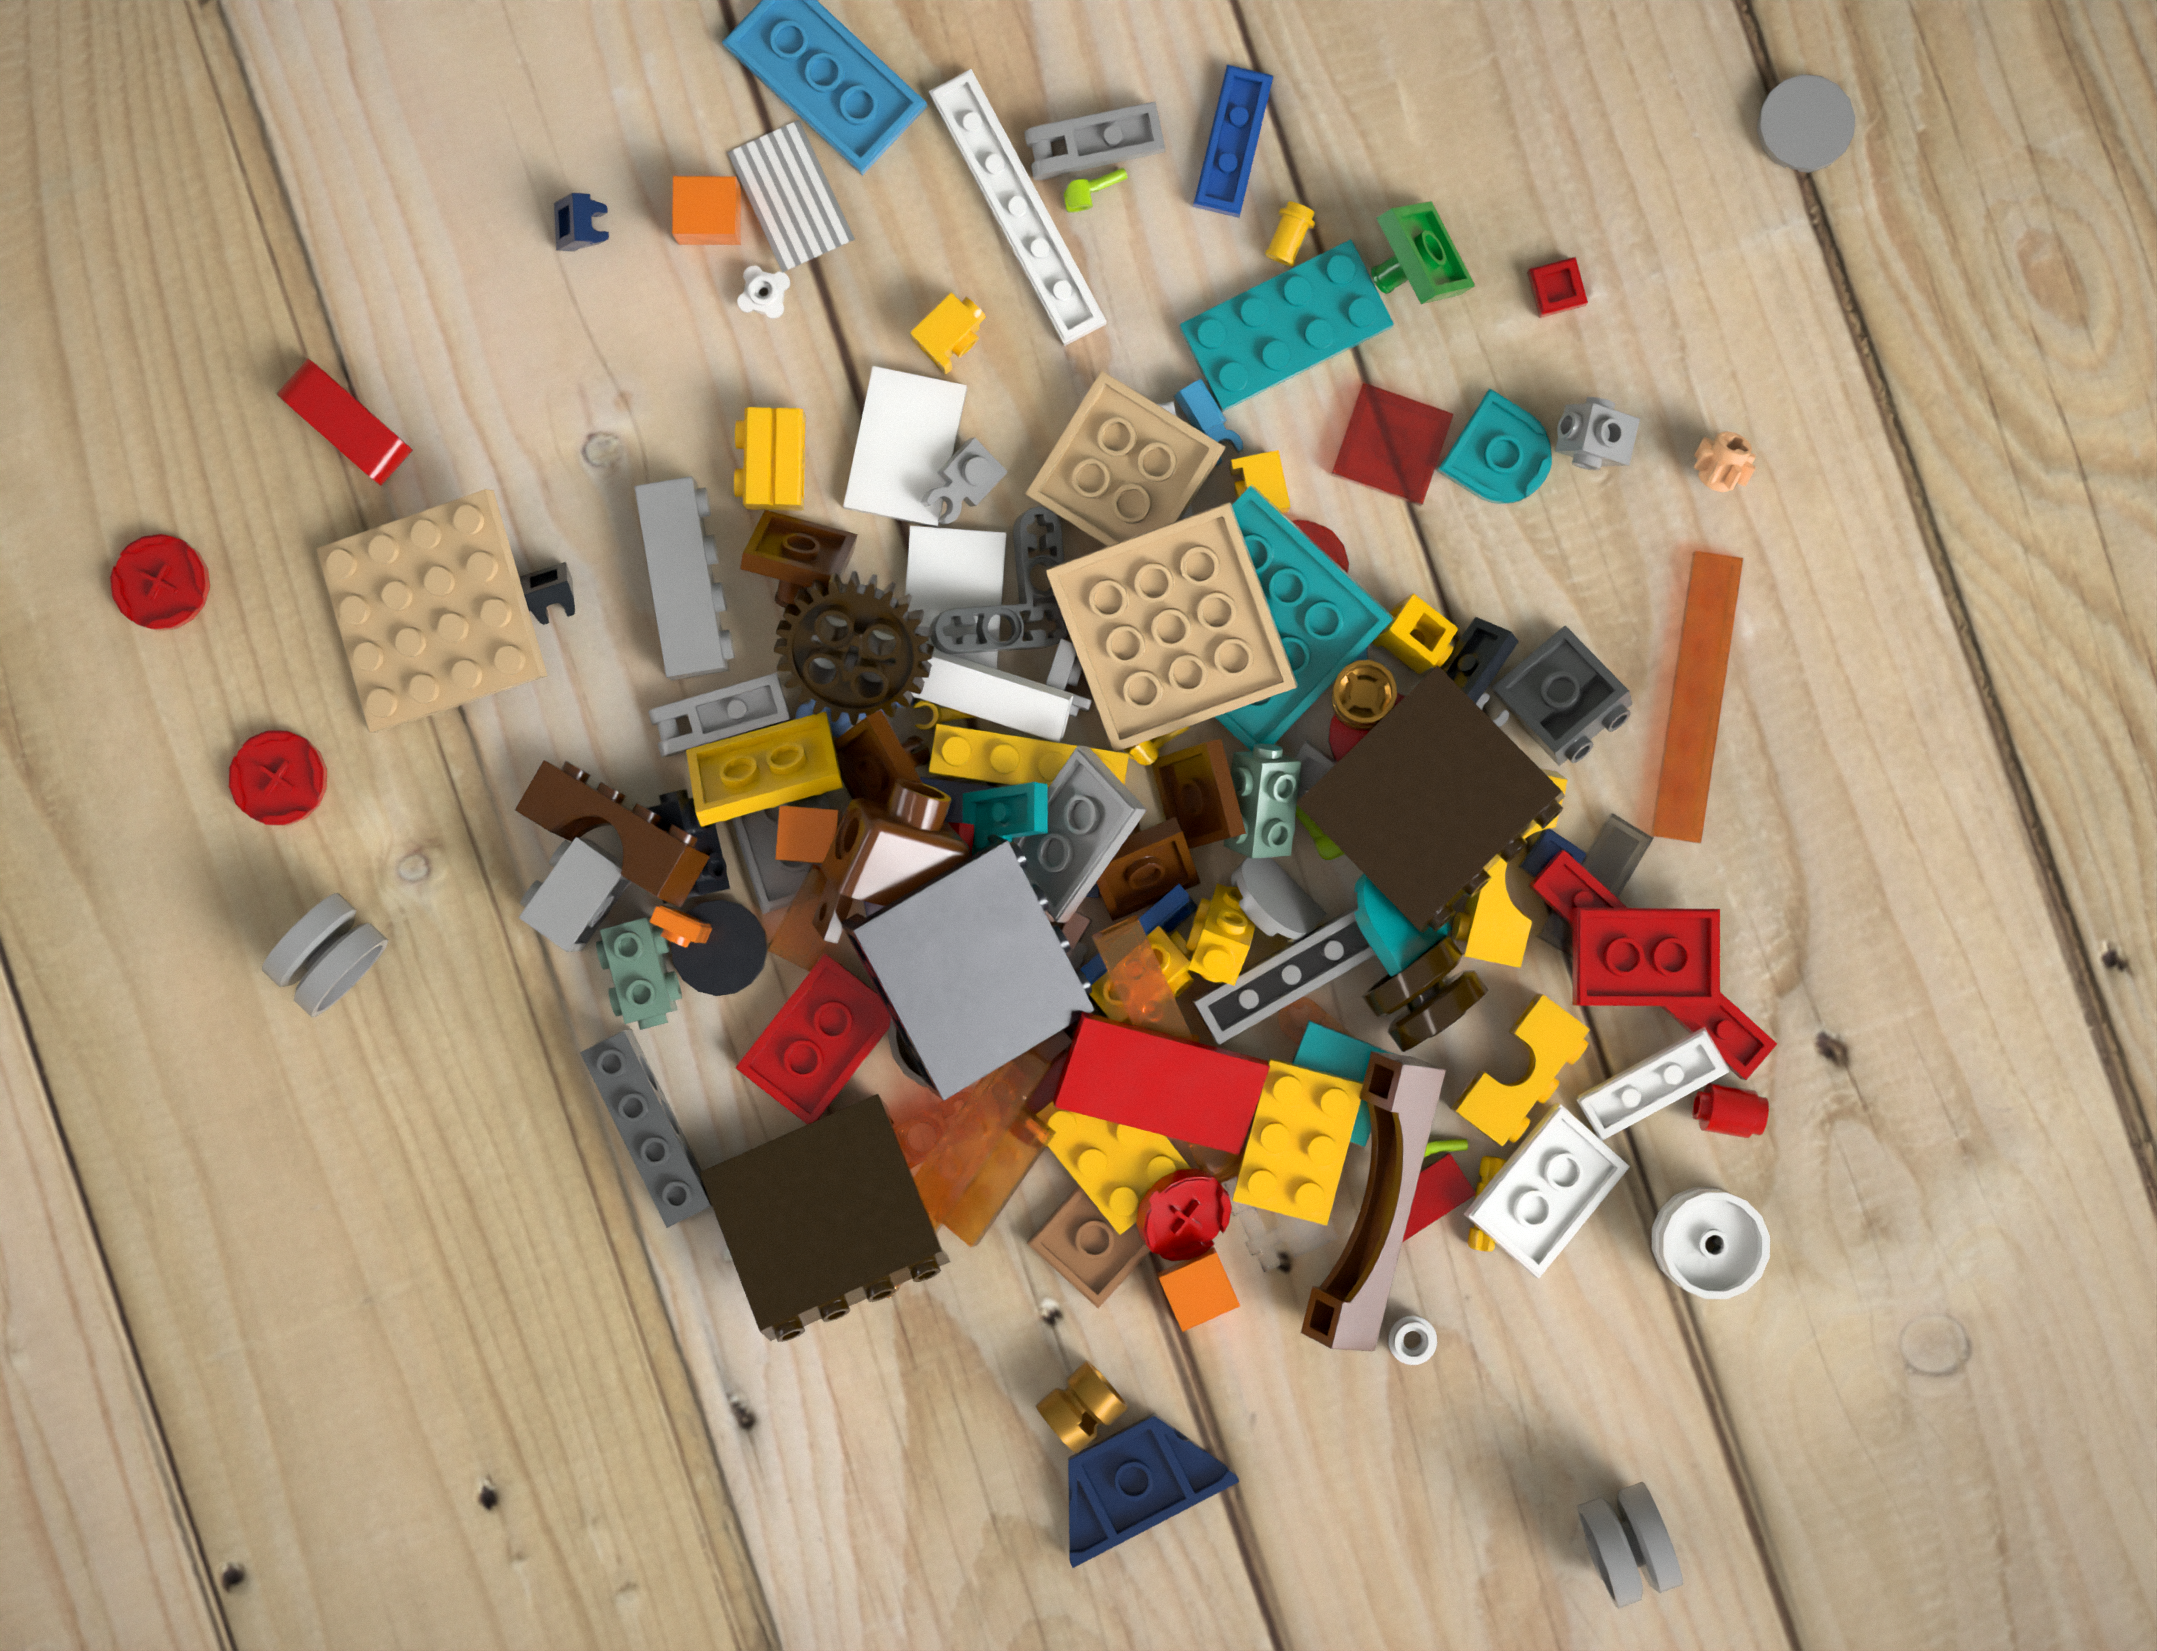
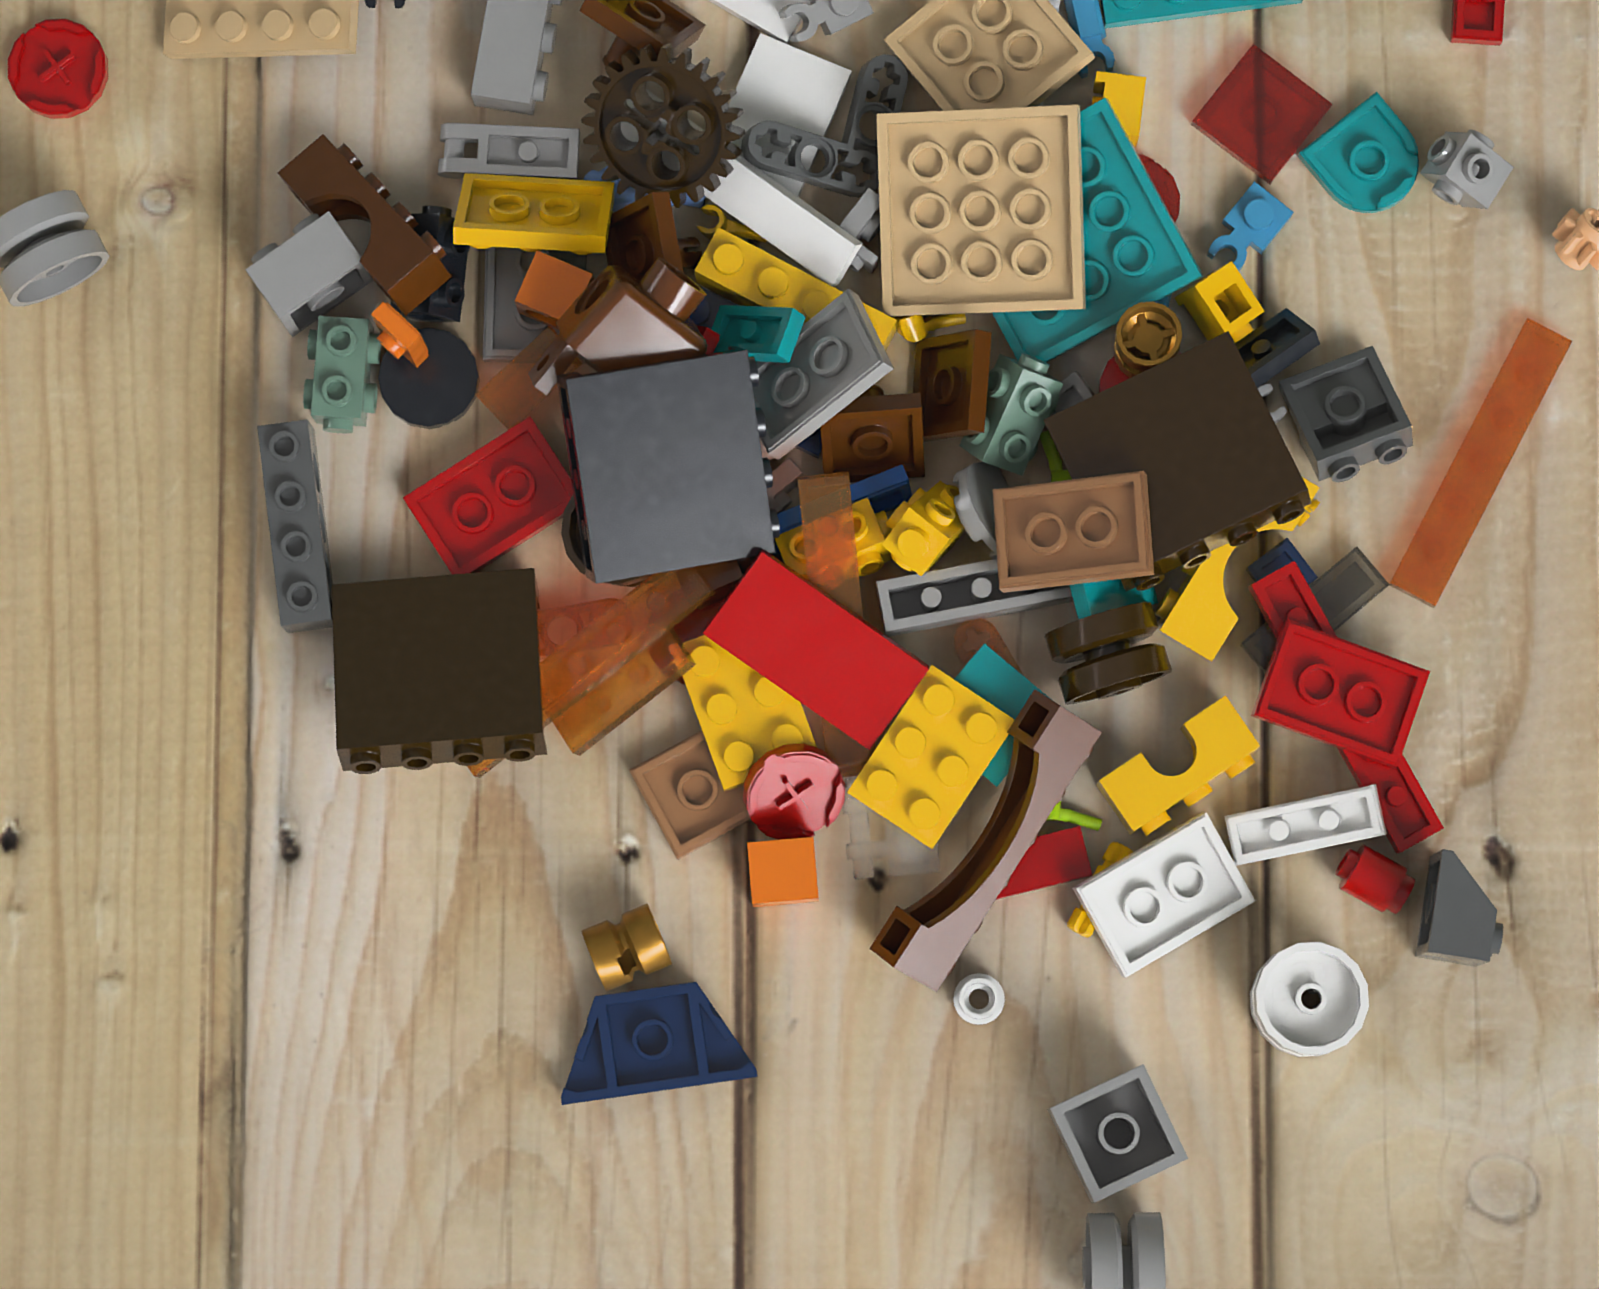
camera: 25 degrees right, 5 degrees down
(1360, 900) = (1073, 531): none -> medium nougat tile
(1419, 547) = (1253, 223): none -> dark azure plate
(1580, 1422) = (1117, 1133): none -> light grey brick
(1816, 1125) = (1456, 915): none -> dark grey slope

